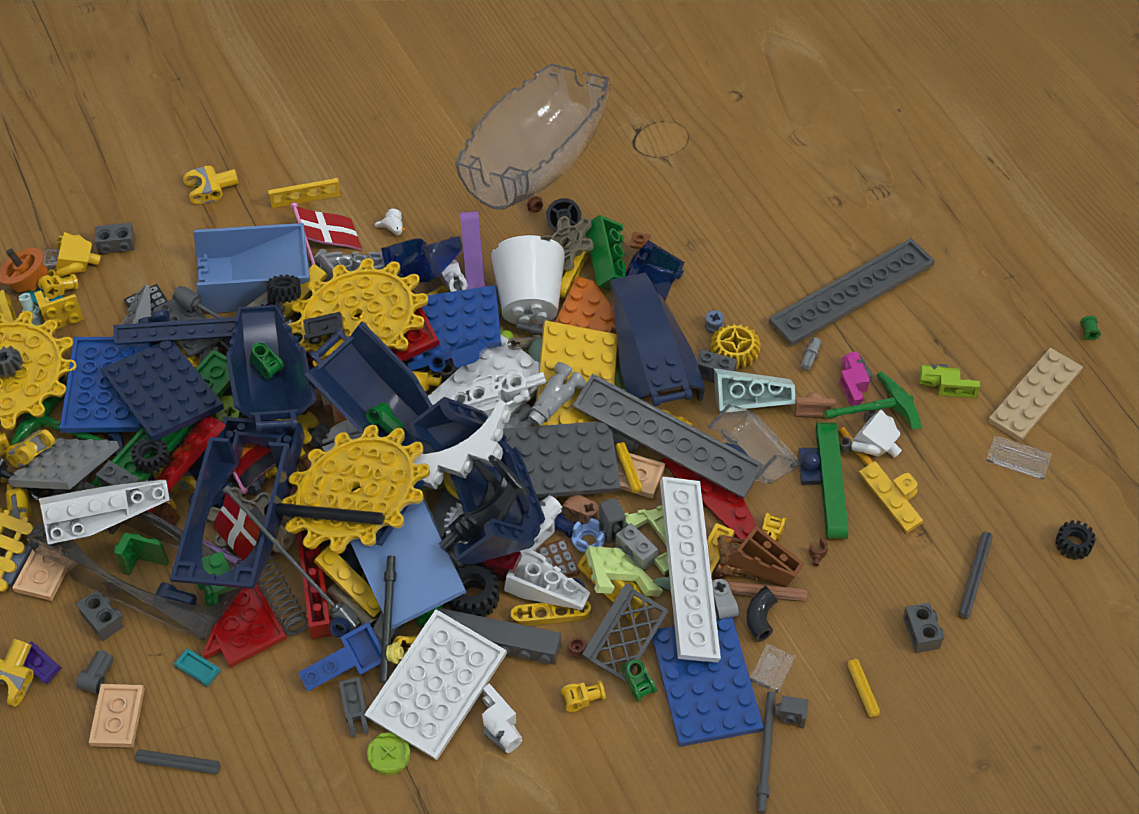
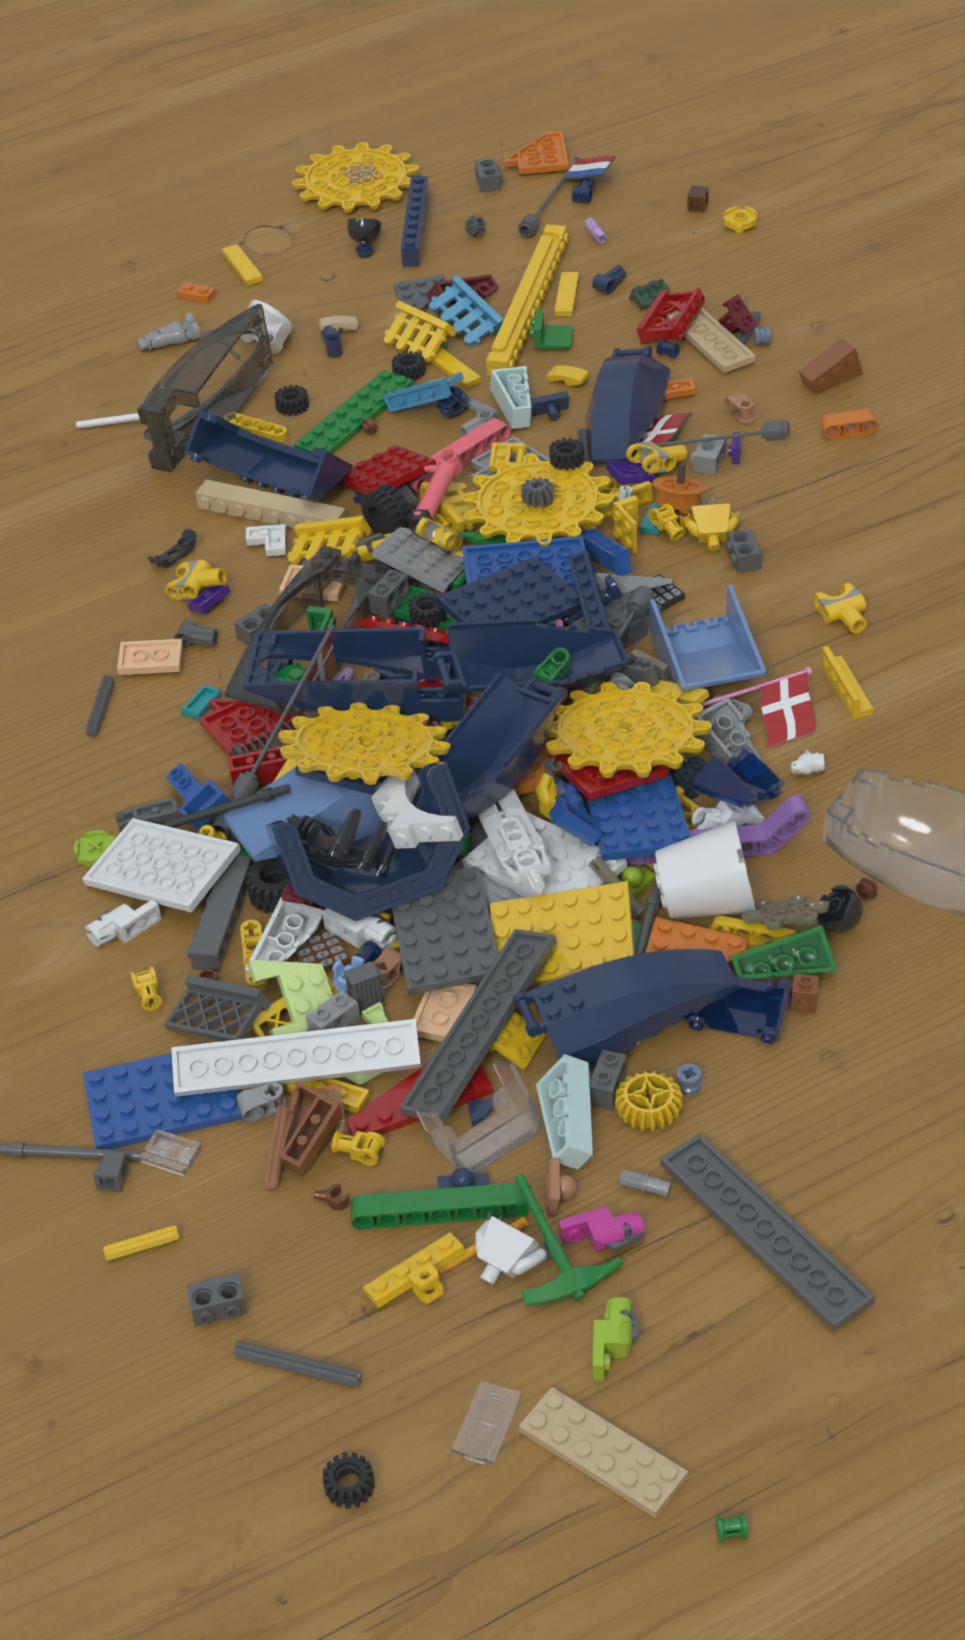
camera: 90 degrees right, 10 degrees down
(96, 509) = (344, 572): white wedge -> none
(101, 322) = (607, 552): none -> blue beam
(283, 288) = (656, 665): black tyre -> none
(322, 327) = (594, 700): black bracket -> none
(330, 513) = (325, 724): black axle -> none
(338, 631) = (227, 781): dark blue plate -> none
(382, 415) = (480, 767): green piece -> none
(394, 653) = (194, 818): light yellow plate -> none
(556, 393) = (524, 906): light grey piece -> none
(628, 467) = (441, 1000): yellow axle -> none
(639, 680) = (160, 1027): green piece -> none
(757, 614) = (241, 1134): black cylinder -> none

